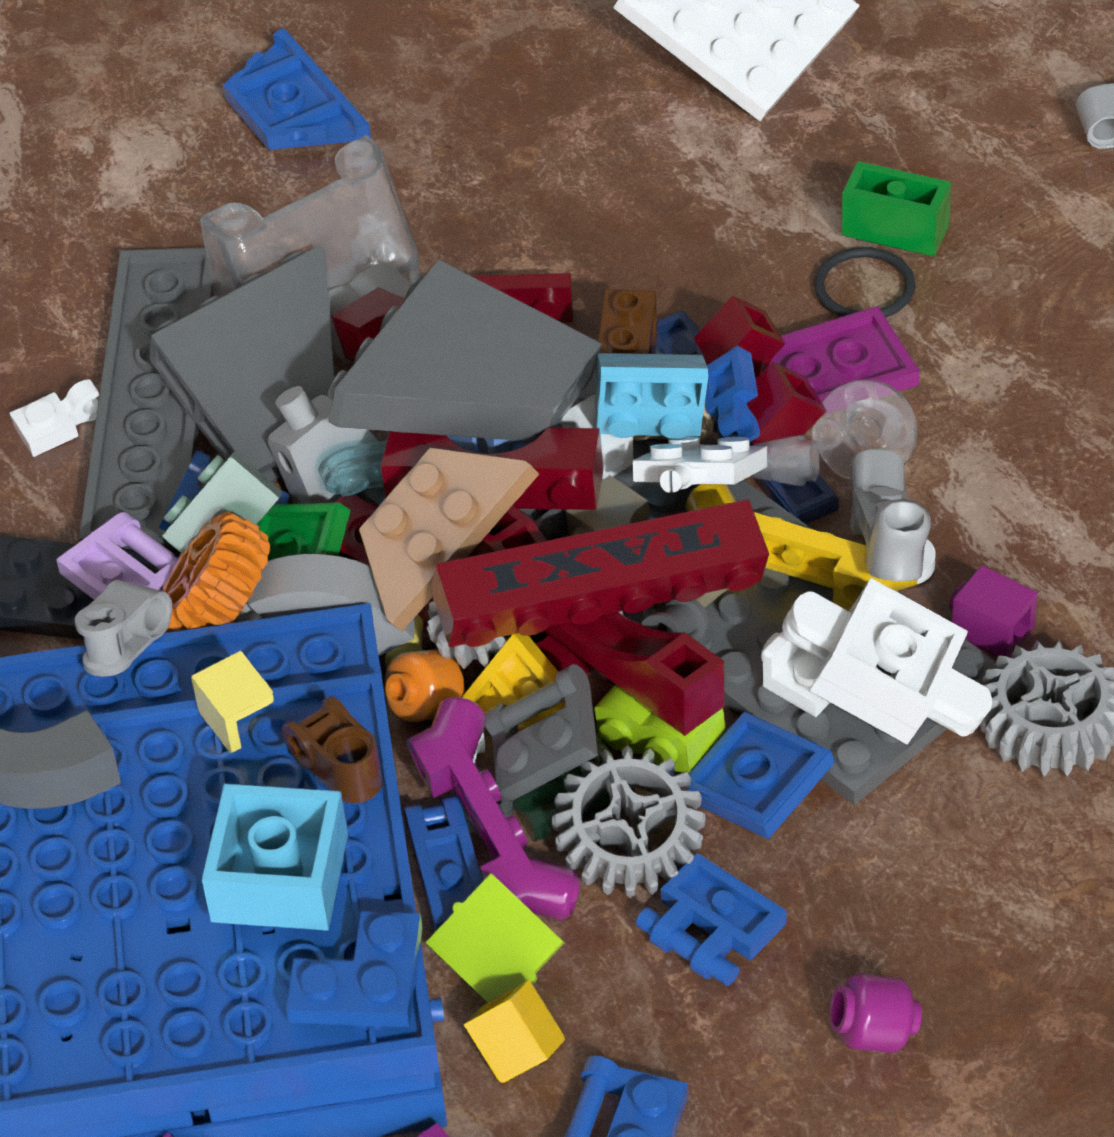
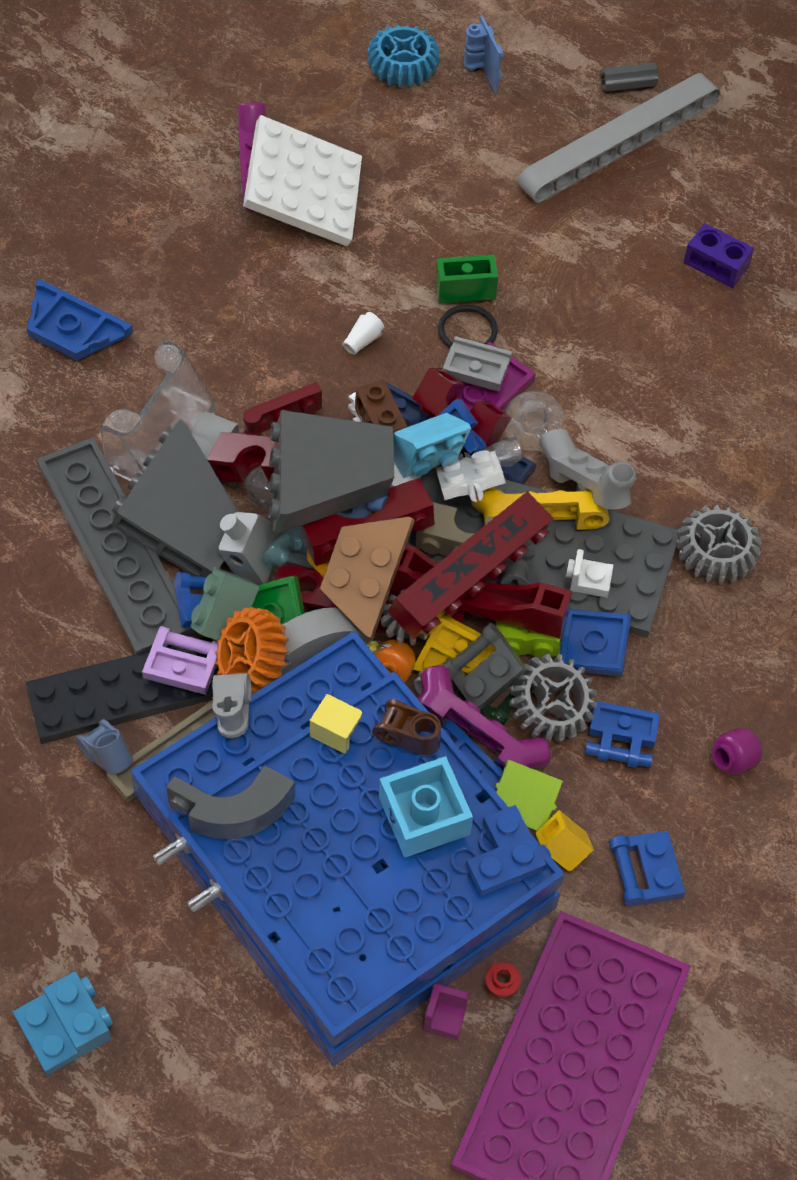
camera: 35 degrees left, 10 degrees up
(53, 422) = (63, 584): white plate -> none
(696, 238) = (364, 332): none -> white cone
(829, 325) = (477, 363): none -> light grey plate
(901, 639) = (639, 554): white brick -> none
(994, 611) = (657, 501): magenta brick -> none

